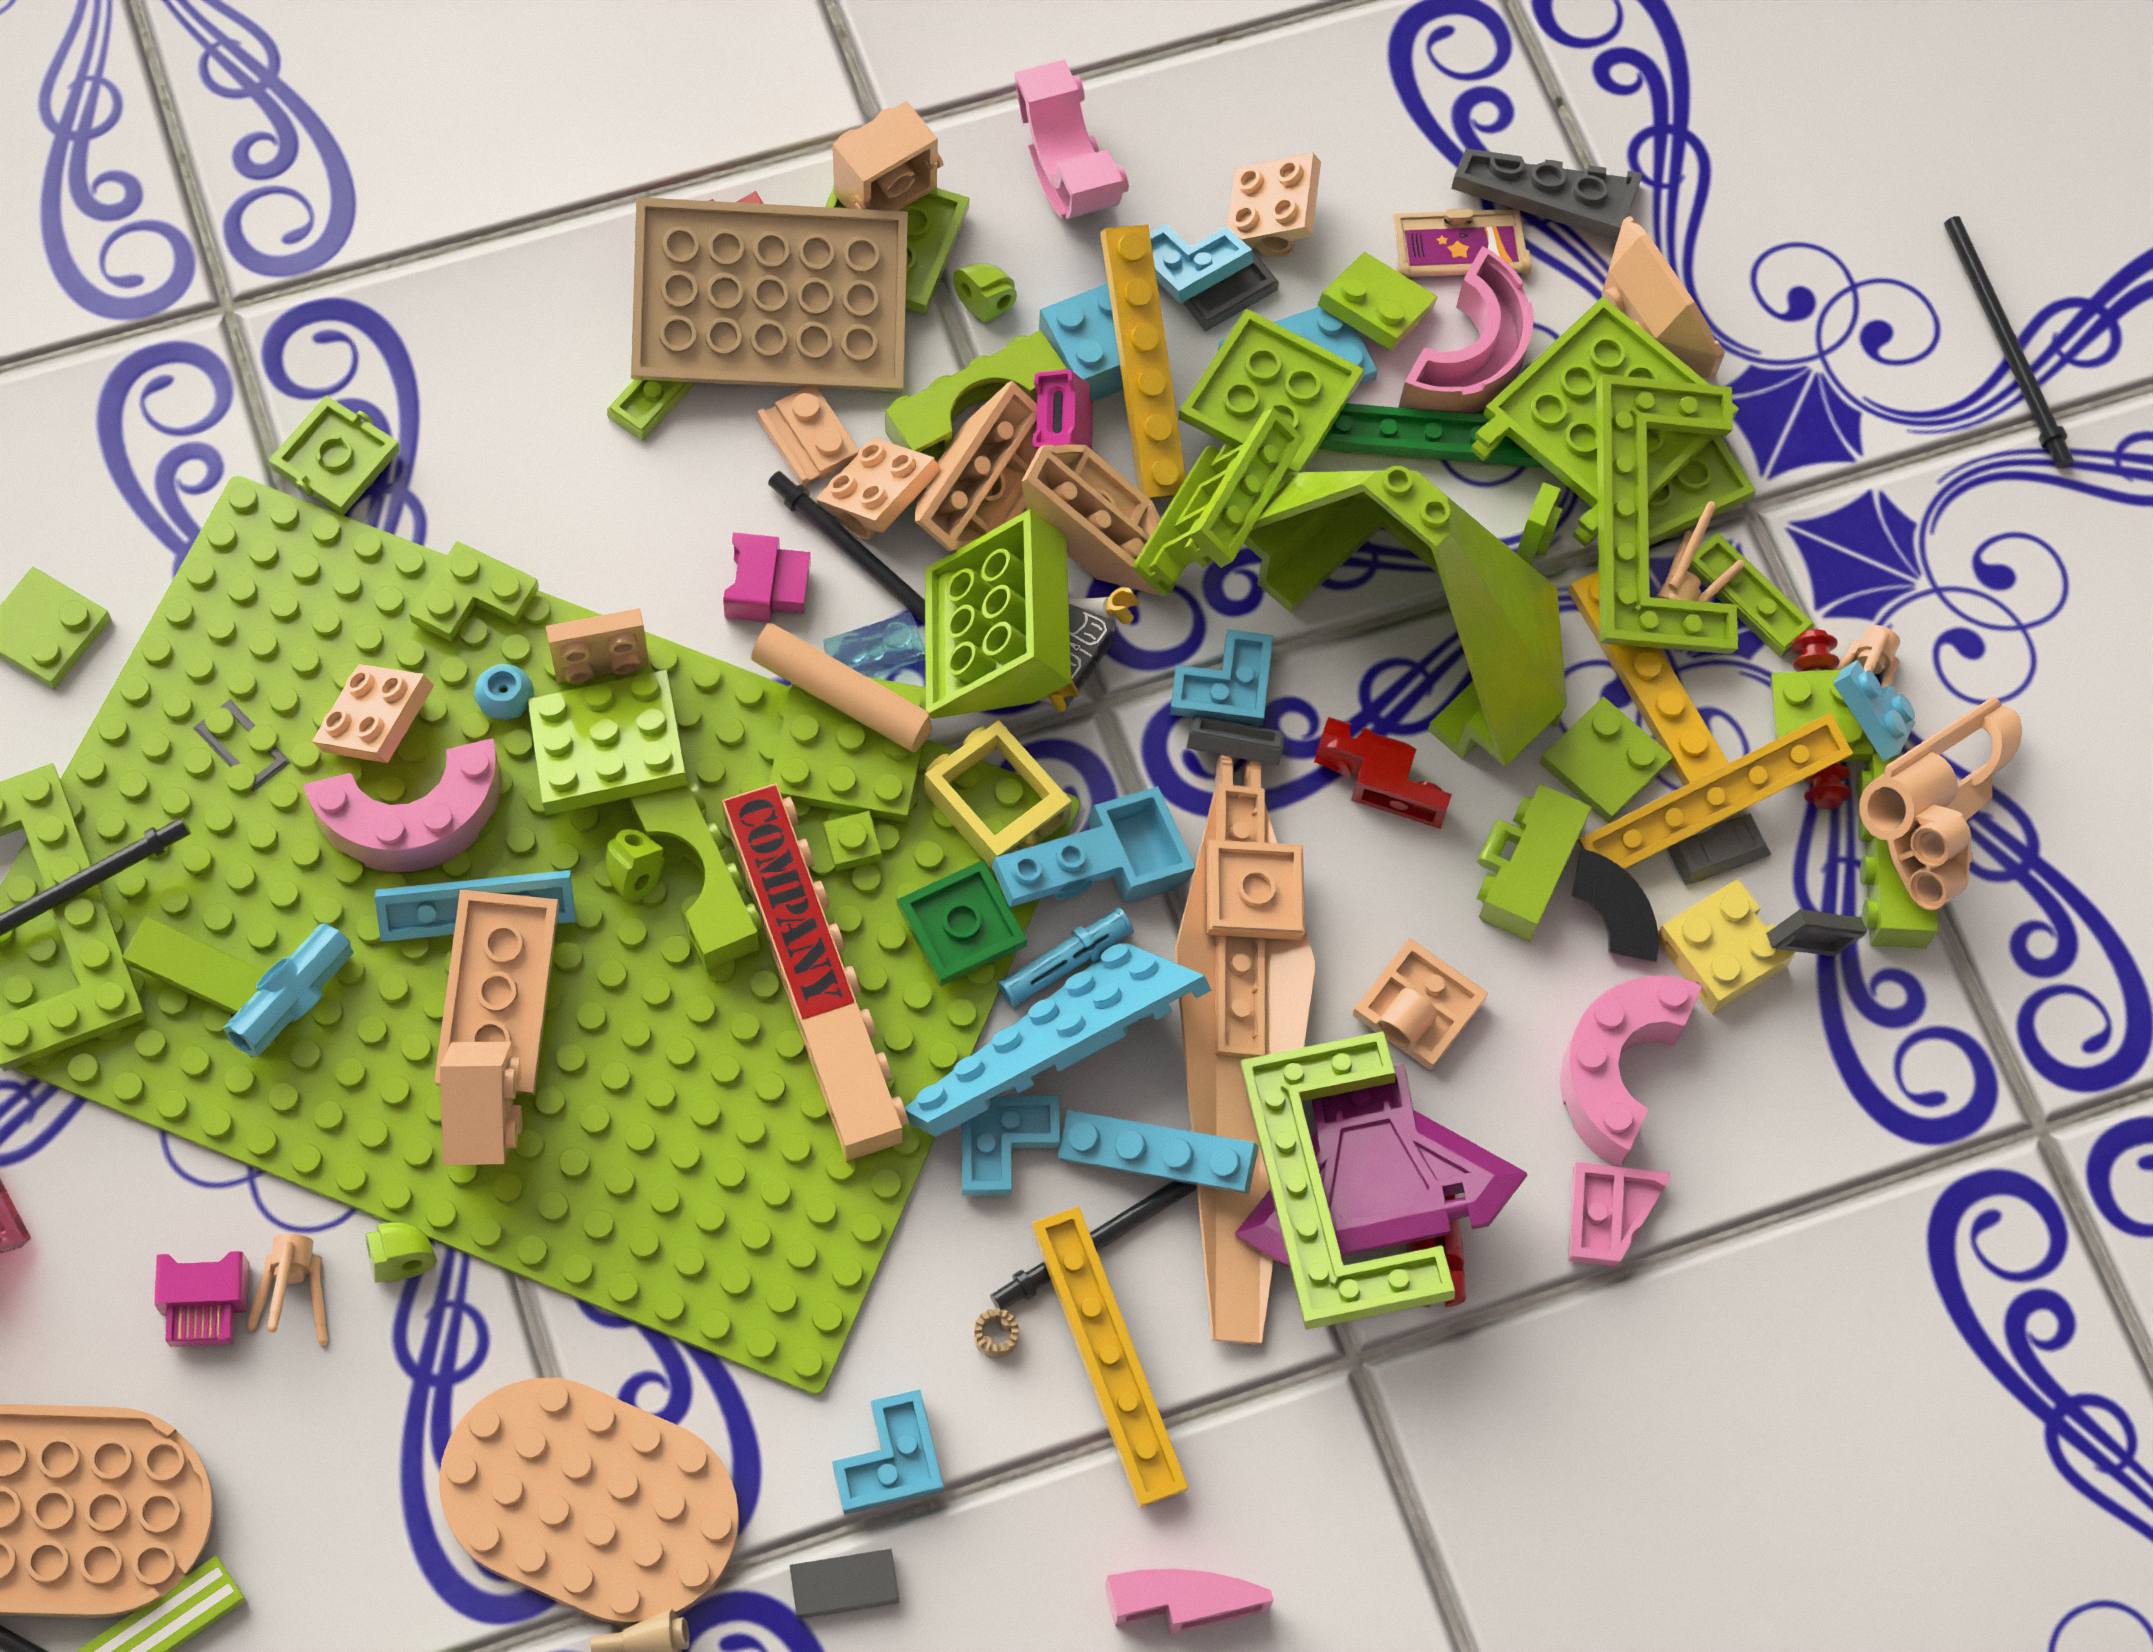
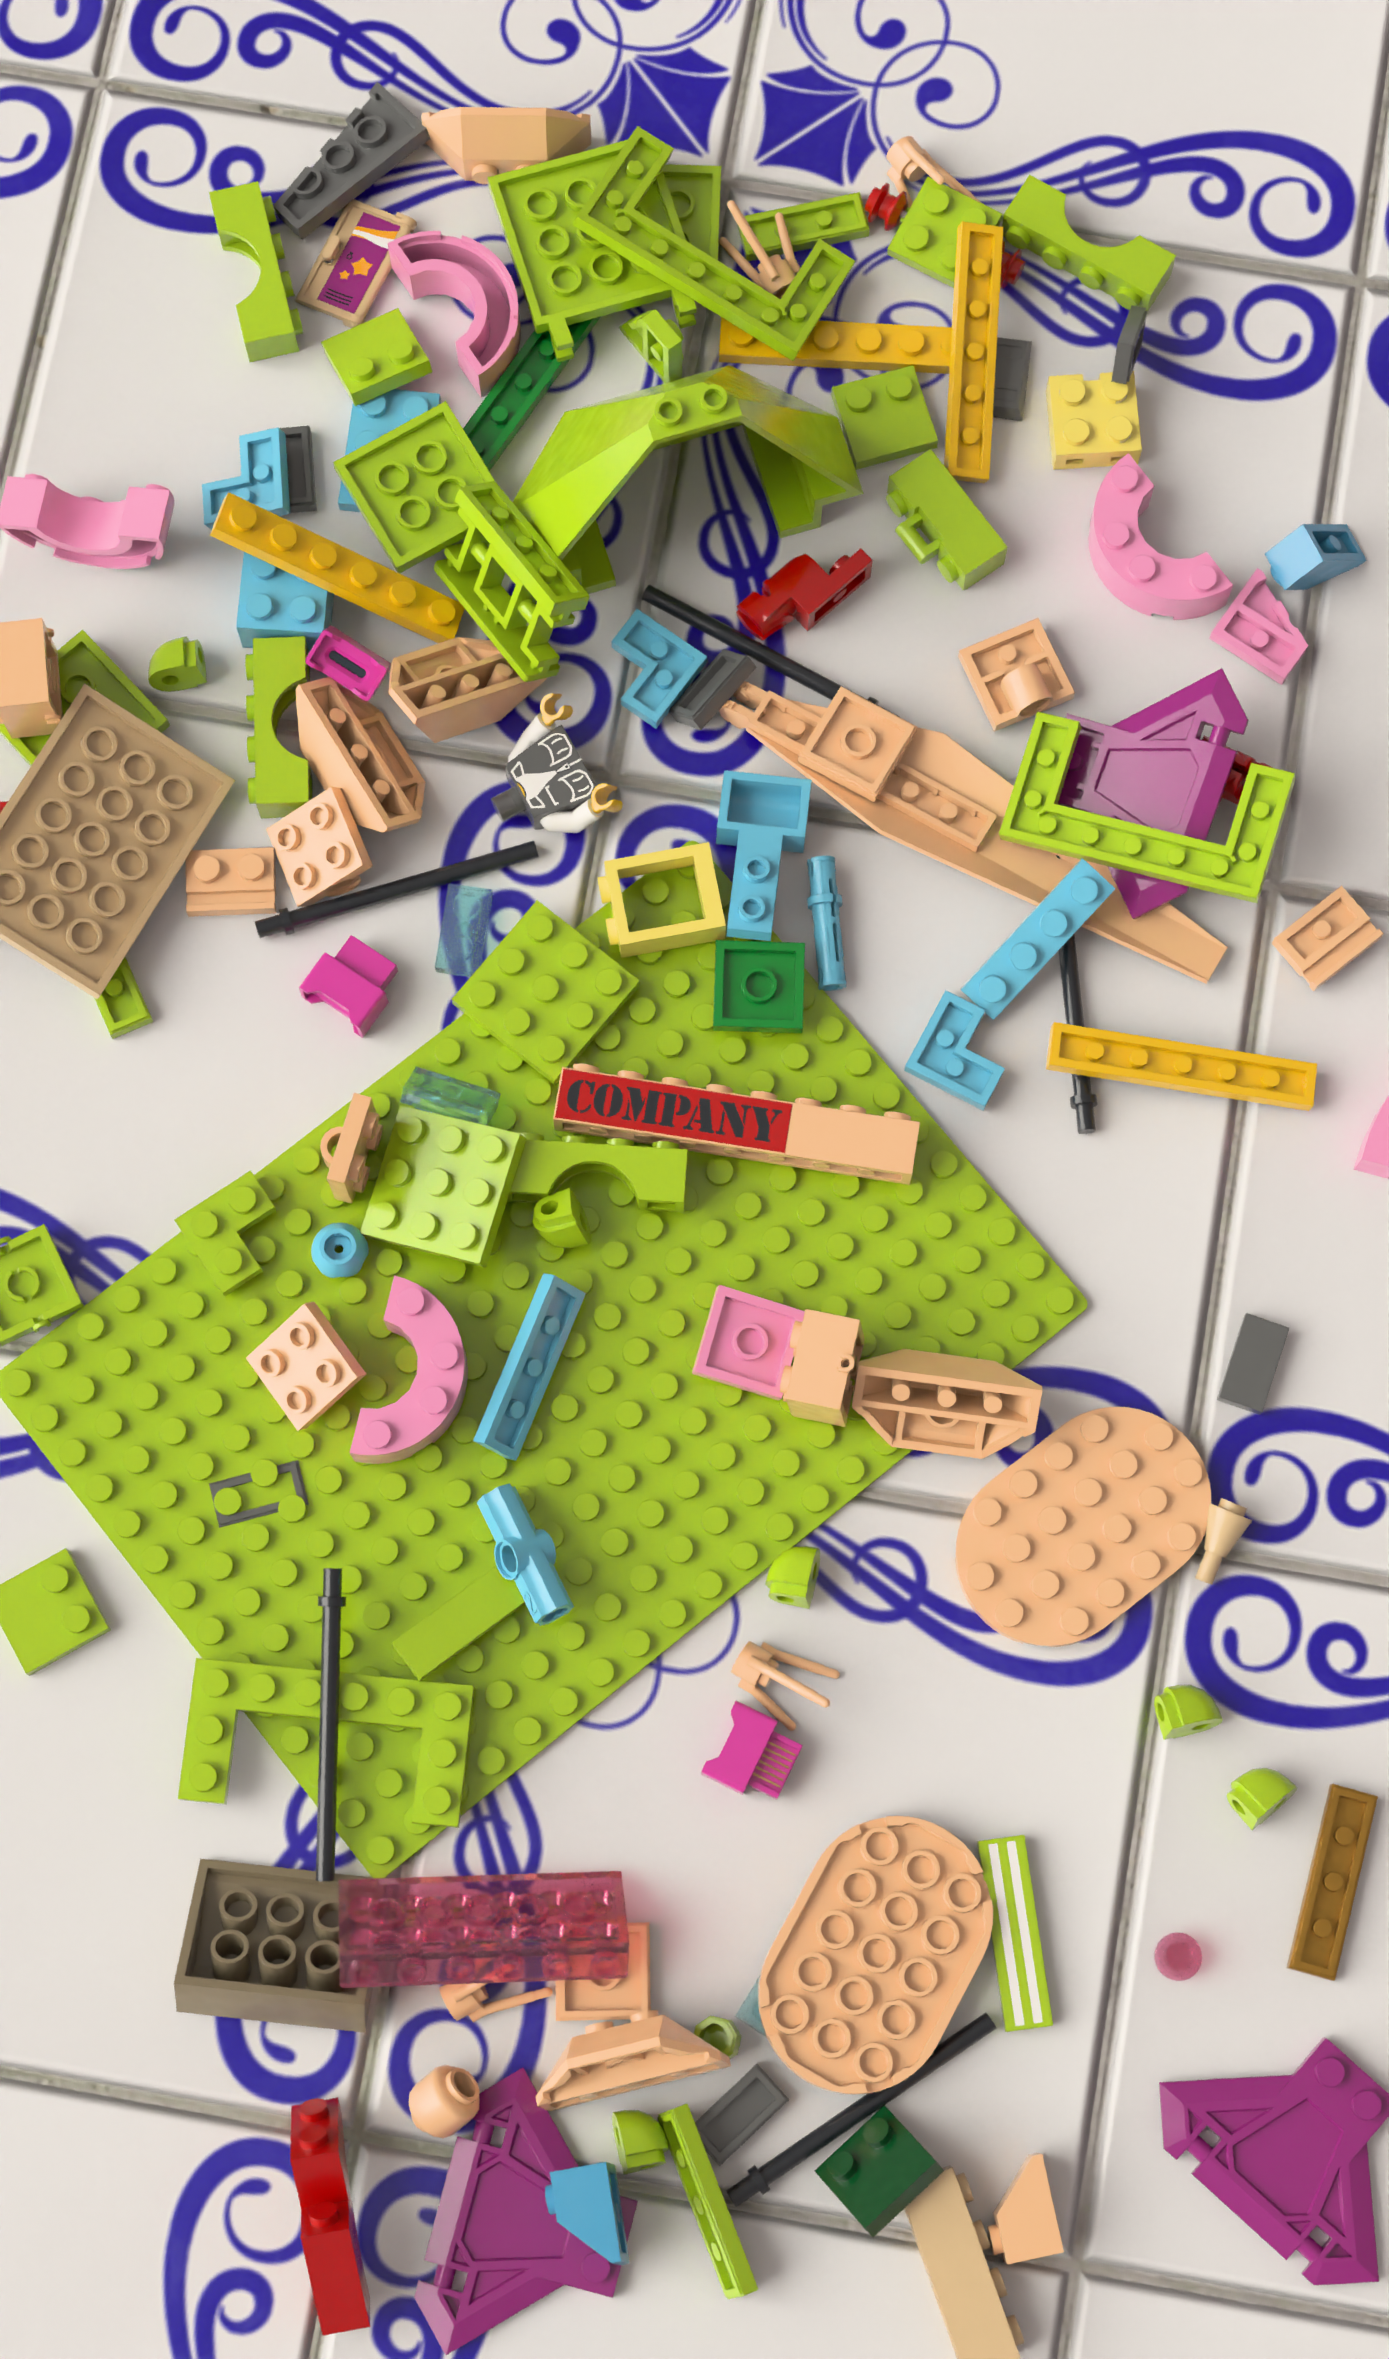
camera: 55 degrees left, 10 degrees up
(477, 1103) = (724, 1442): light nougat brick -> none
(500, 976) = (621, 1385): light nougat plate -> none
(604, 1089) = (747, 1342): none -> bright pink plate
(606, 1161) = (823, 1363): none -> light nougat brick
(635, 1290) = (945, 1402): none -> light nougat wedge
(699, 709) = (449, 1097): none -> clear light blue plate
(842, 687) = (506, 970): light nougat brick -> none
(852, 841) = (635, 1036): lime plate -> none
(903, 1466) = (1184, 1268): medium azure plate -> none
(998, 620) = (513, 815): lime slope -> none
(1007, 1323) = (1105, 1132): tan bush -> none
(1058, 1031) = (898, 954): medium azure wing -> none
(1275, 203) = (236, 385): light nougat plate -> none
(1302, 765) = (743, 643): none -> black bar
(1327, 1434) = (1327, 938): none -> light nougat plate
(1358, 196) = (244, 228): none -> lime arch
(1619, 903) = (1020, 477): black tile -> none
(1720, 1222) = (1314, 555): none -> dark azure slope
(1879, 711) = (973, 187): medium azure plate -> none
(1926, 809) = (1069, 207): light nougat panel -> none

